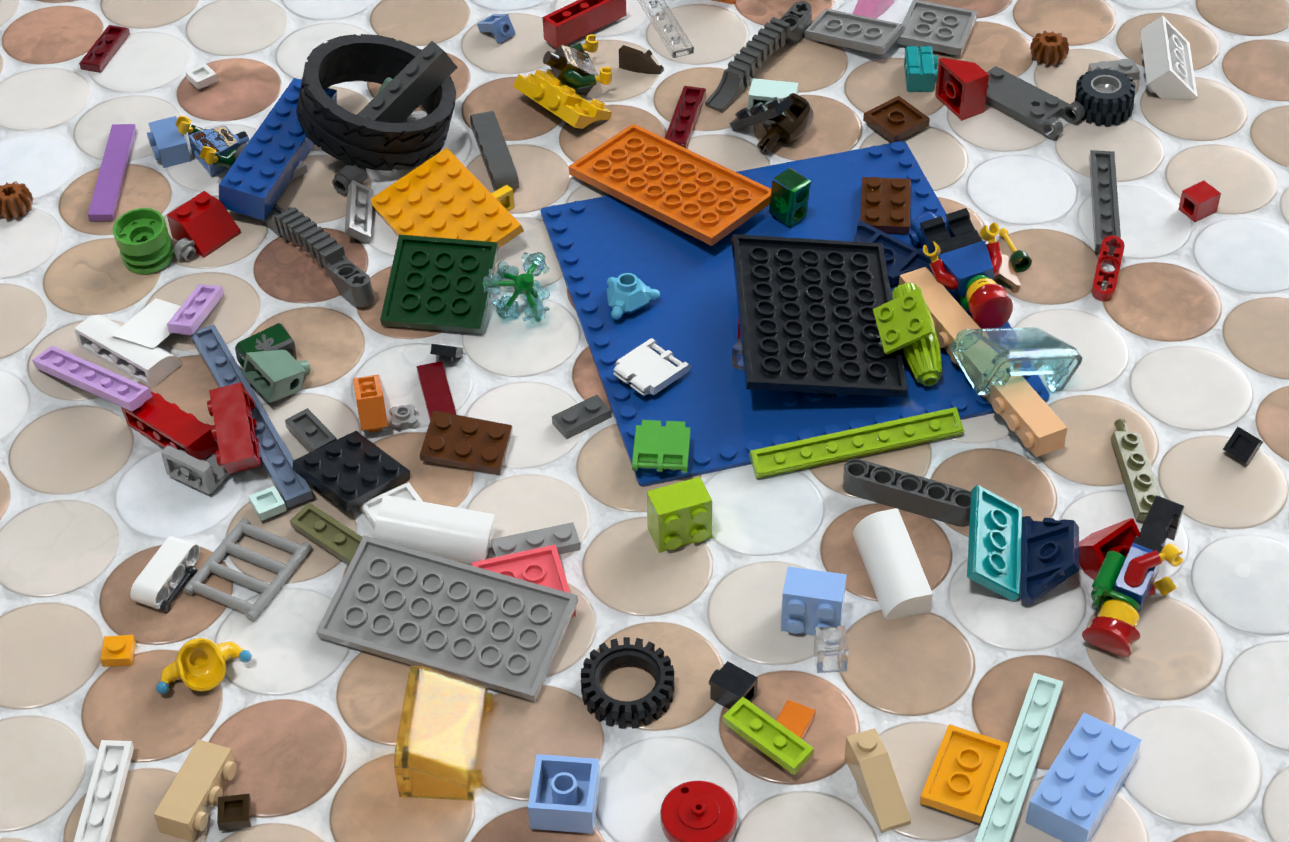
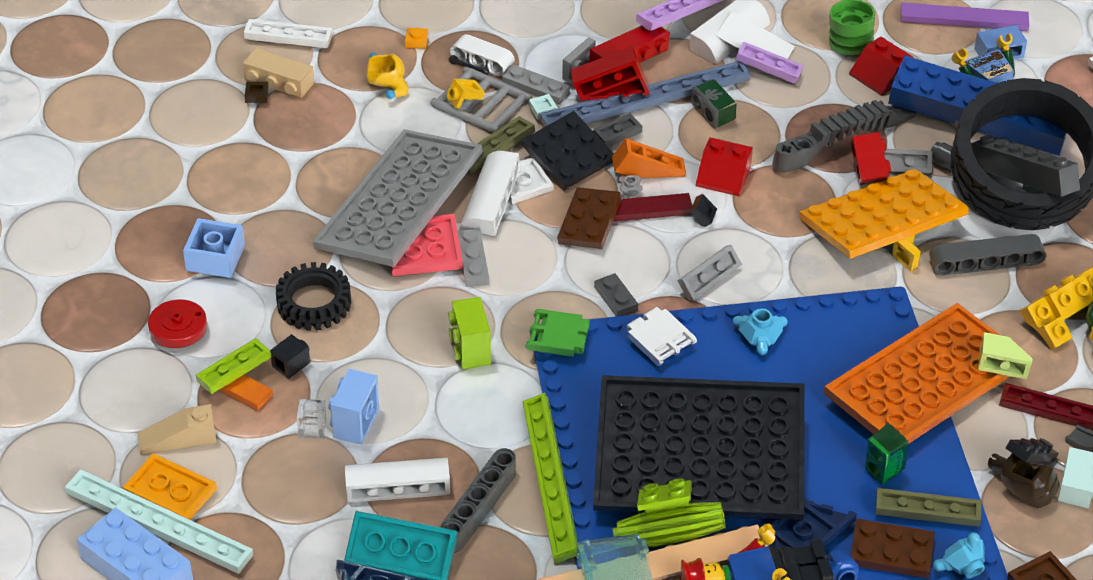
camera: 95 degrees right, 0 degrees up
(184, 249) = (850, 57): light grey plate -> none
(219, 517) = (535, 83): none -> light grey plate
(251, 573) = (464, 89): none -> yellow bracket
(275, 373) = (681, 106): sand green torso -> none
(368, 221) = (869, 158): none -> red brick
(374, 338) = (724, 166): none -> red slope
(439, 284) = (784, 203): dark green plate -> none
(440, 736) = (289, 180): clear yellow windscreen -> none
(523, 284) = (763, 248): clear light blue plant -> none
(543, 342) = (709, 272): none -> light grey plate
(646, 130) = (1003, 356): none -> yellowish green slope
(834, 182) = (928, 507): none -> olive plate
(891, 153) = (964, 557): none -> medium azure rock

